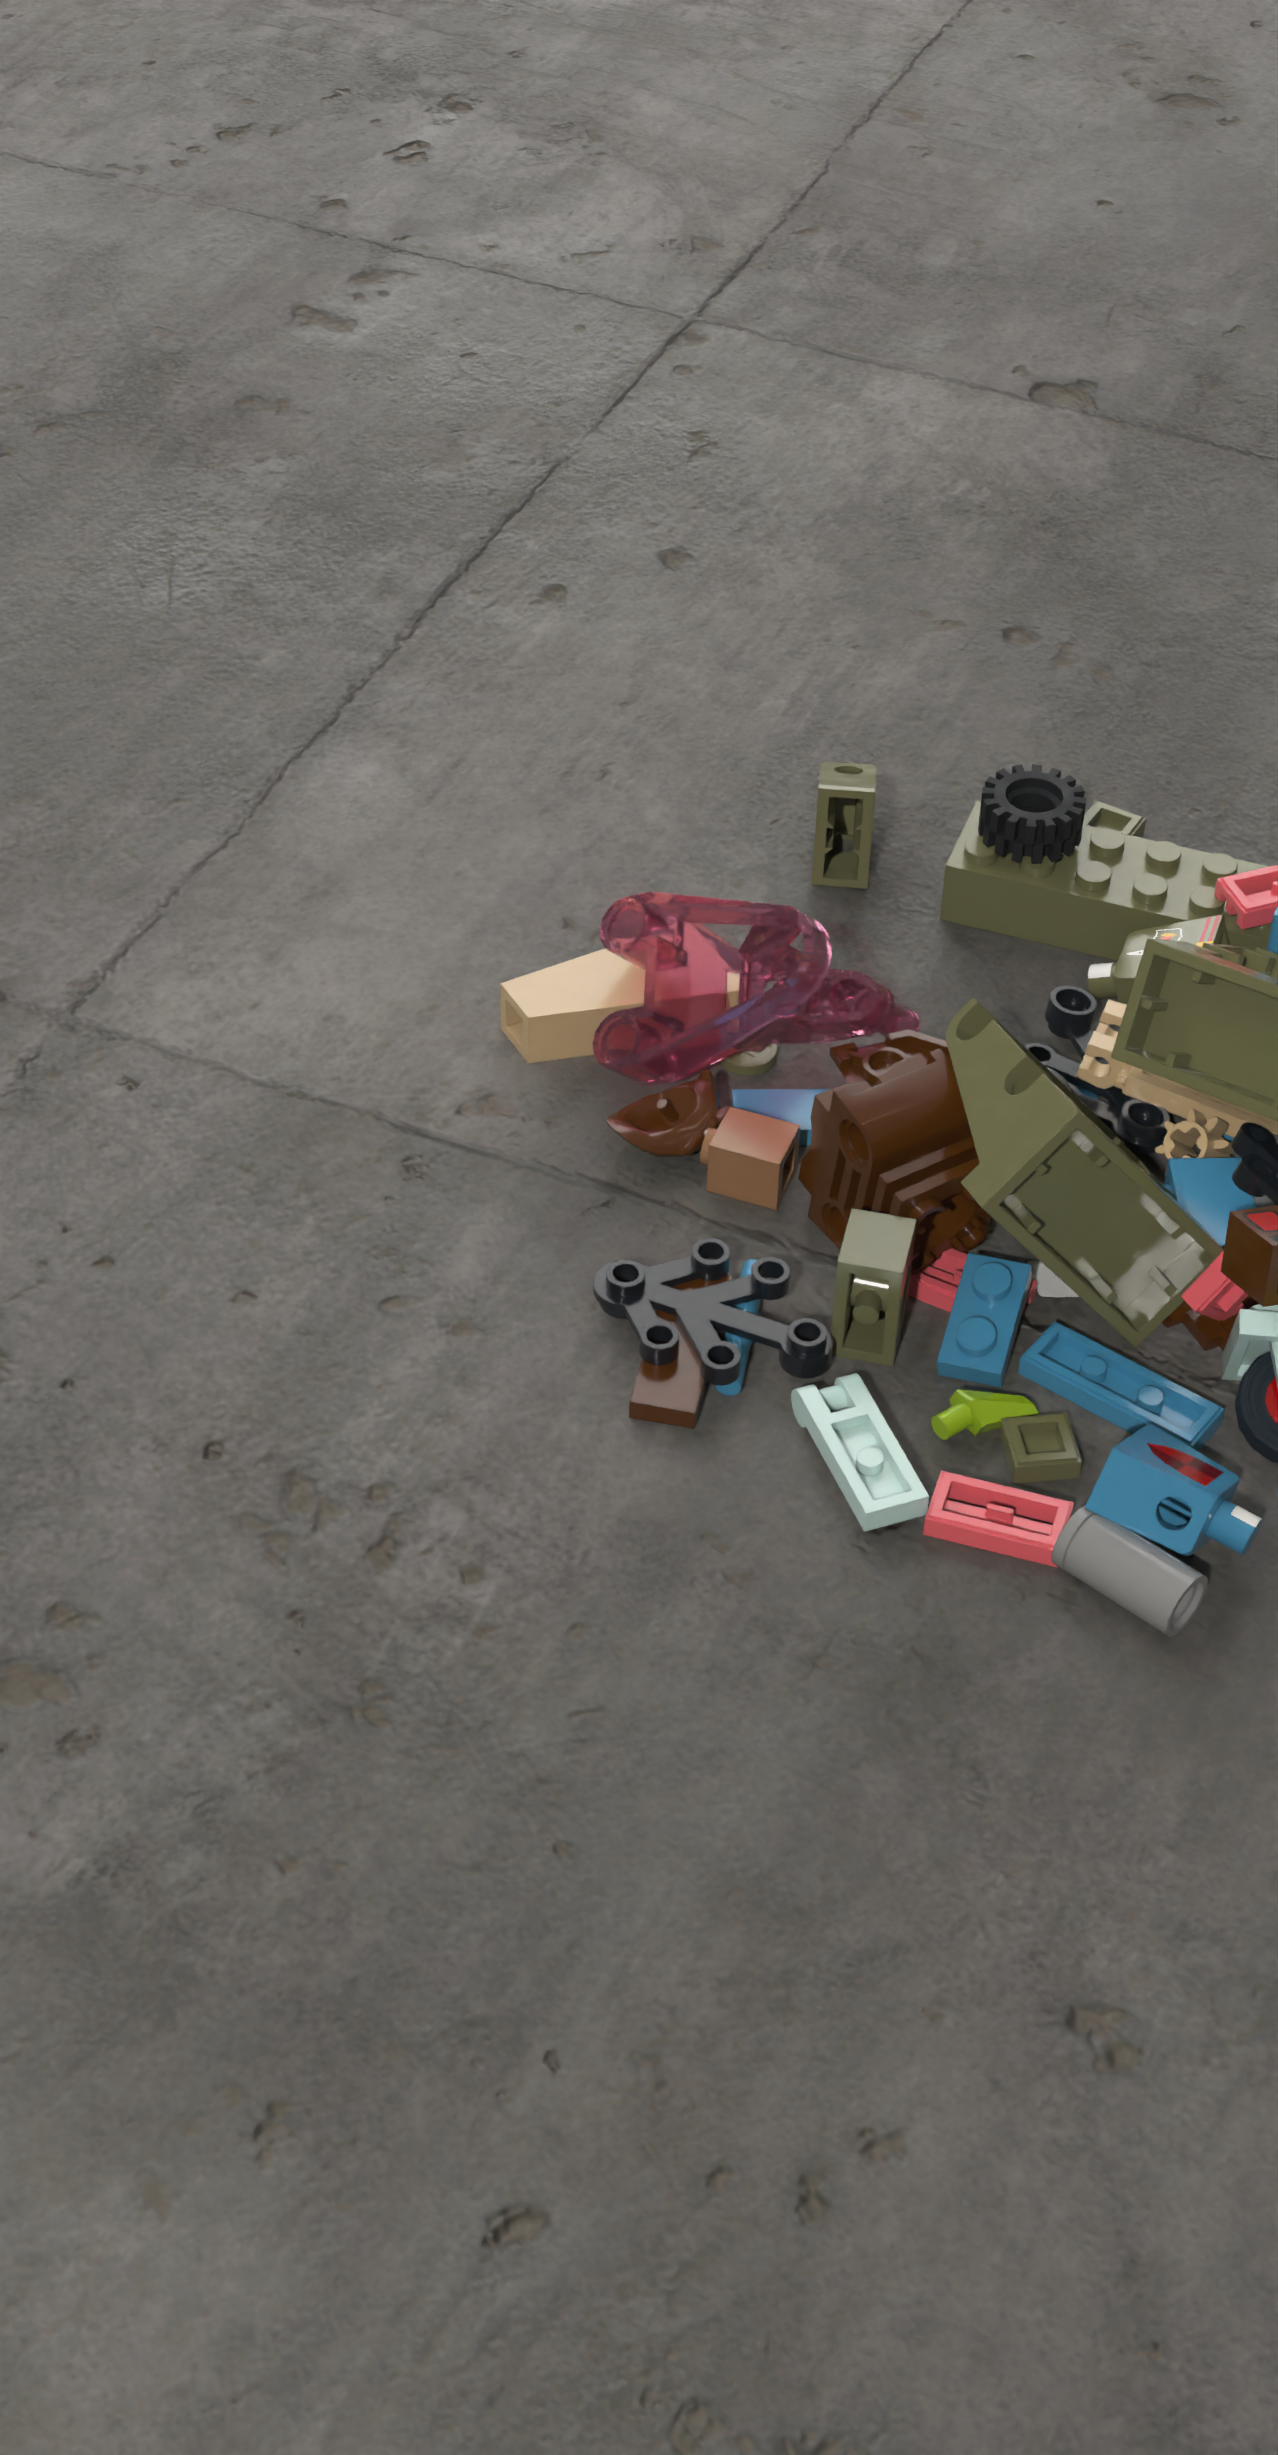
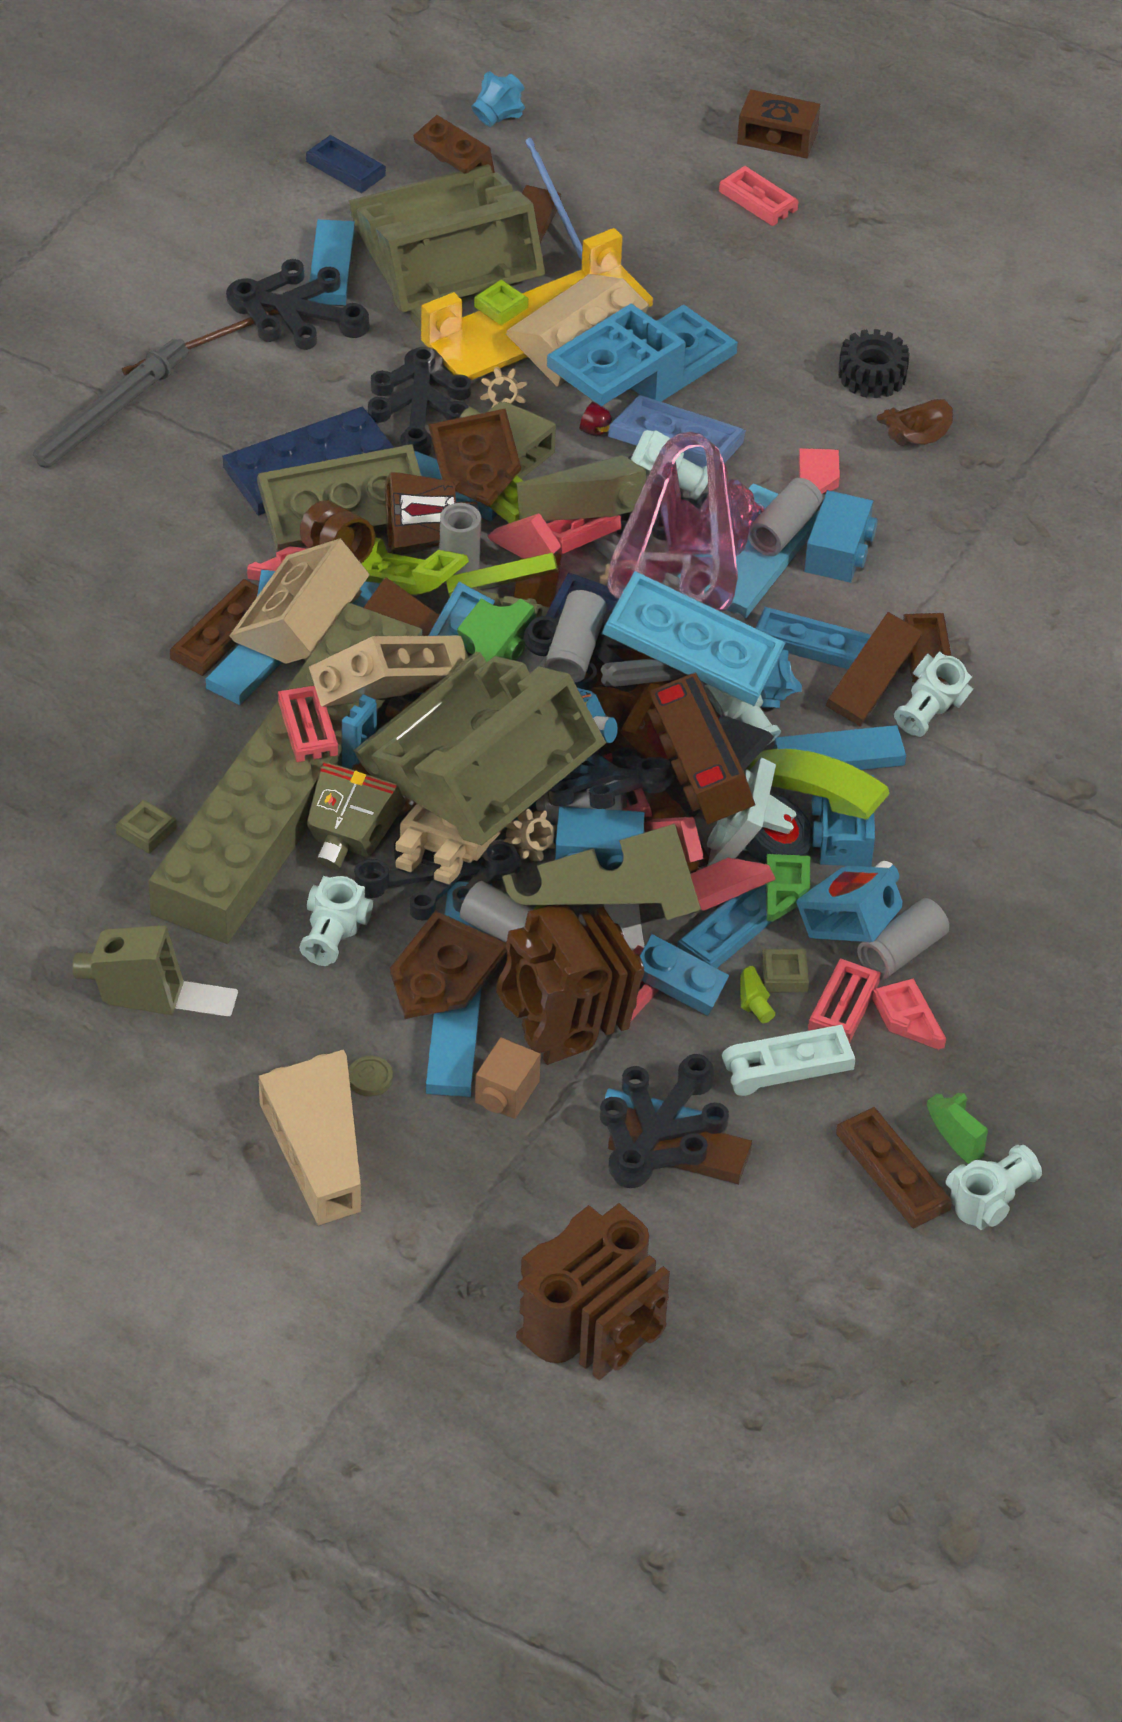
camera: 85 degrees left, 5 degrees up
(376, 1236) = (593, 1292): none -> reddish brown piece
(641, 1683) = (985, 1187): none -> light aqua connector
(671, 1120) = (457, 1119): reddish brown hat -> none
(684, 1585) = (894, 1167): none -> reddish brown tile
(686, 986) = (378, 993): clear pink connector -> none
(762, 1641) = (958, 1127): none -> bright green slope
(845, 909) = (207, 999): none -> white sticker
(872, 1286) = (666, 1017): olive brick -> none
(995, 1595) = (908, 1013): none -> coral tile
(1002, 981) = (337, 913): none -> light aqua connector
(1031, 814) = (204, 858): black tyre -> none
(1175, 1356) = (728, 880): none -> coral tile
(1203, 1421) = (790, 883): none -> bright green slope

